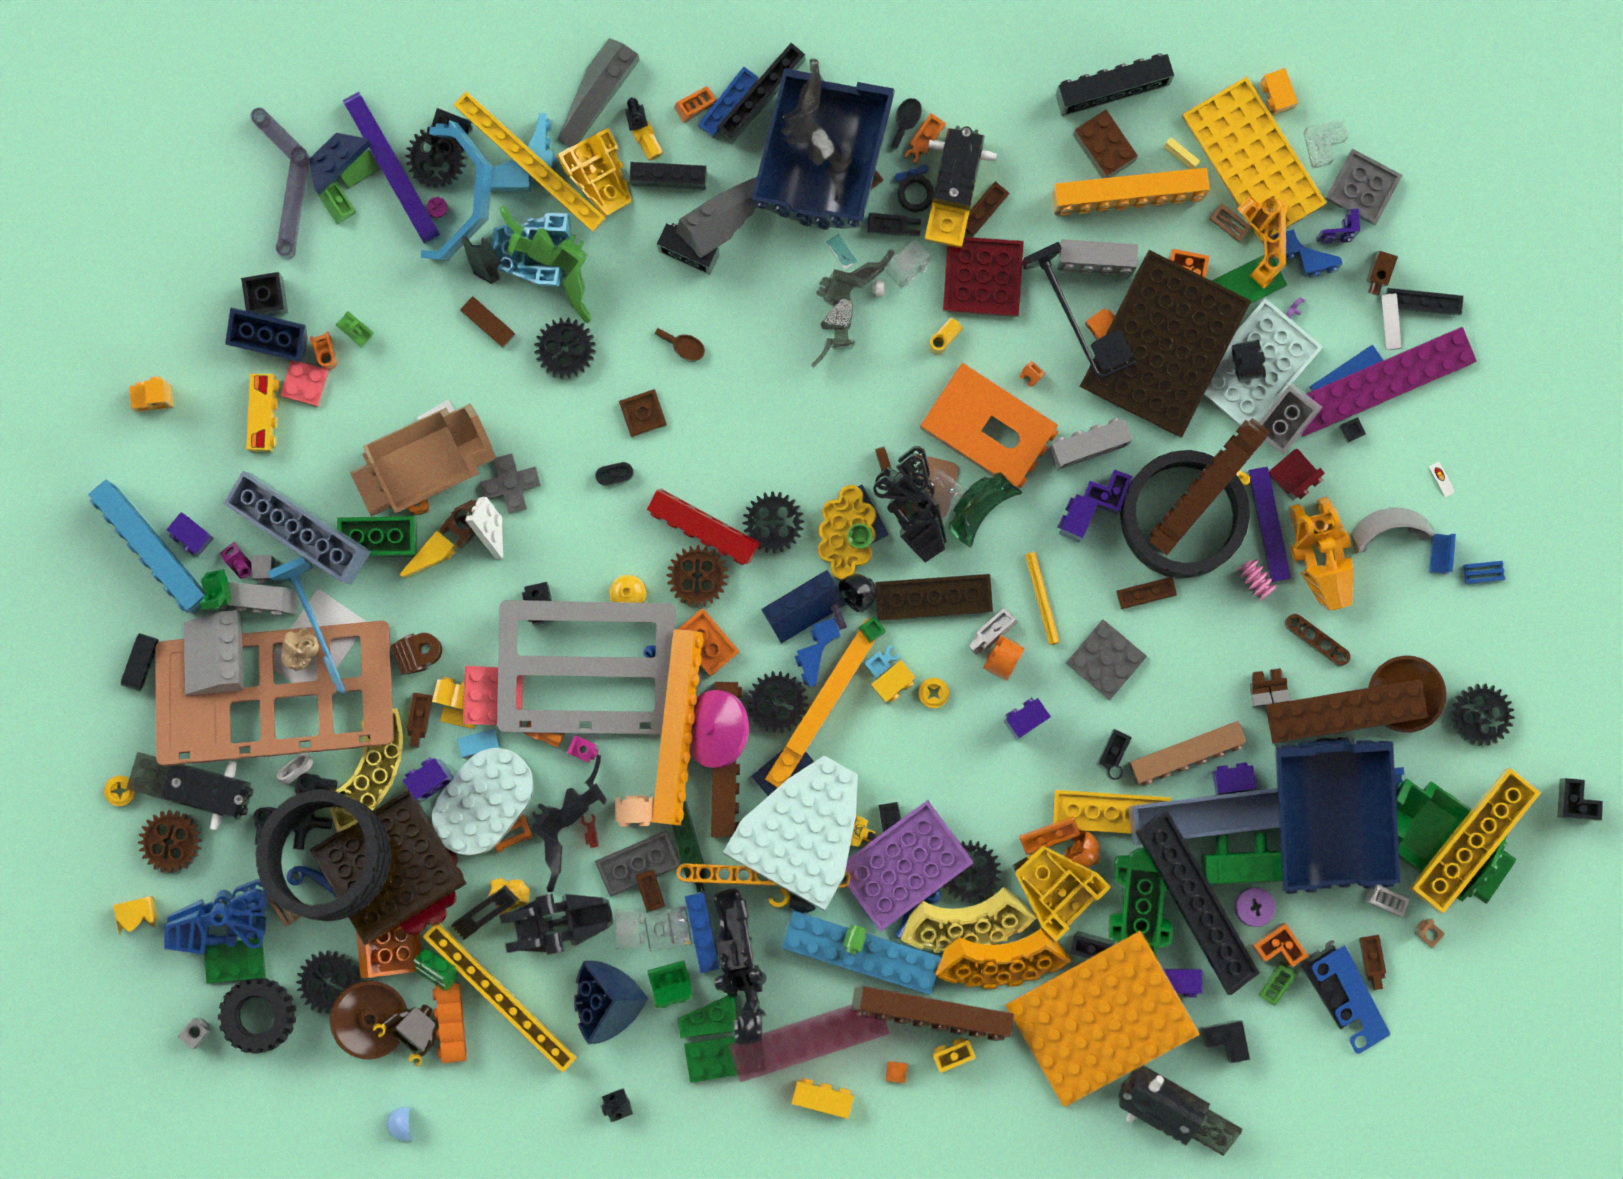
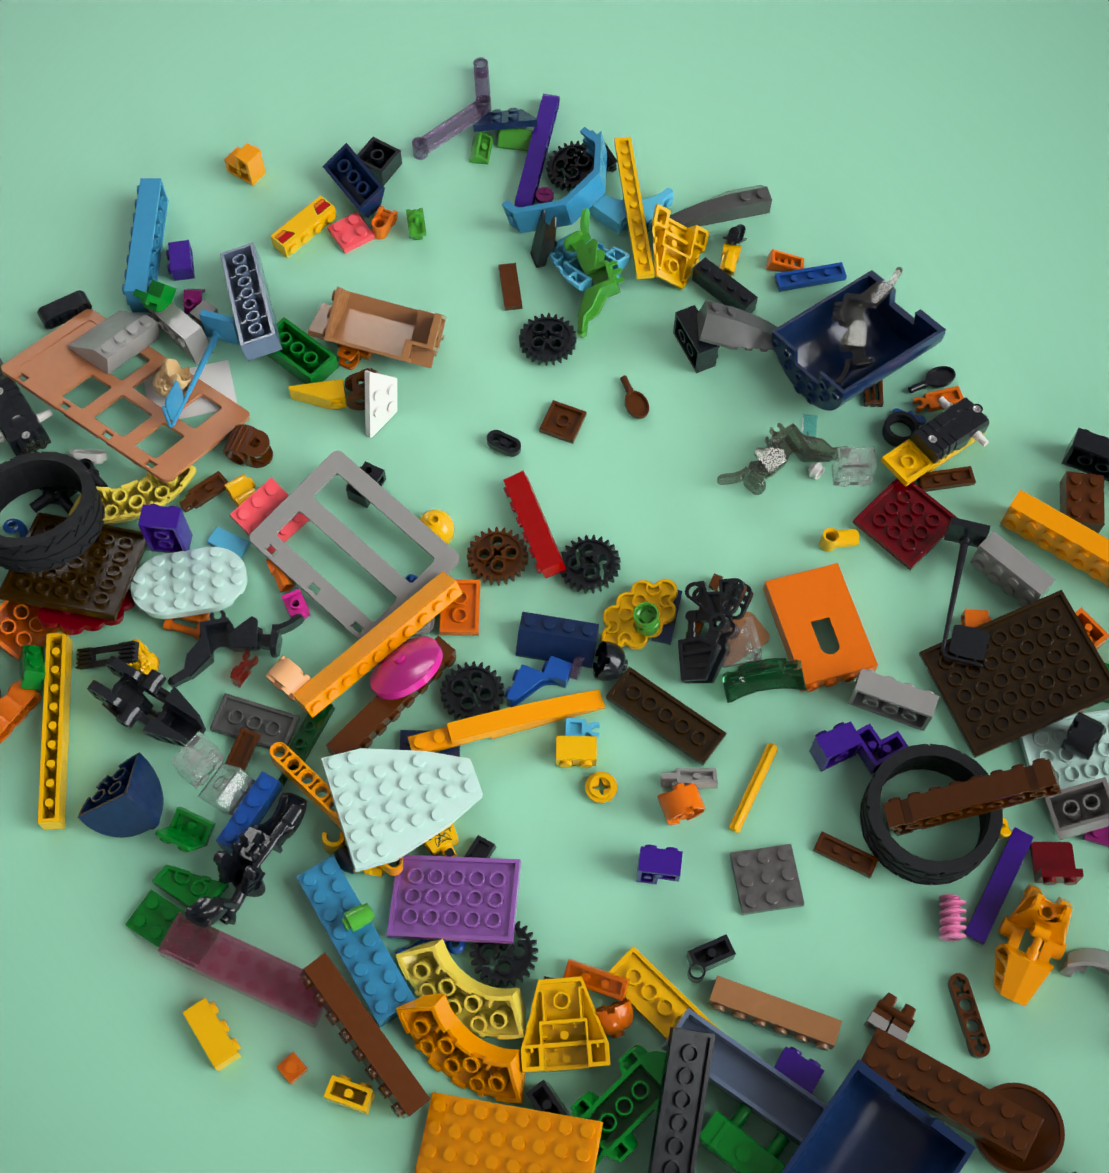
camera: 40 degrees right, 20 degrees down
(454, 717) = (226, 510): yellow sticker -> none
(510, 483) = (424, 395): flat silver plate -> none
(616, 1105) = (53, 890): black brick -> none
(759, 94) = (820, 286): black brick -> none
(872, 629) = (595, 699): green tile -> none
(892, 224) = (864, 436): black hinge -> none
(1033, 371) = (890, 616): orange tile -> none

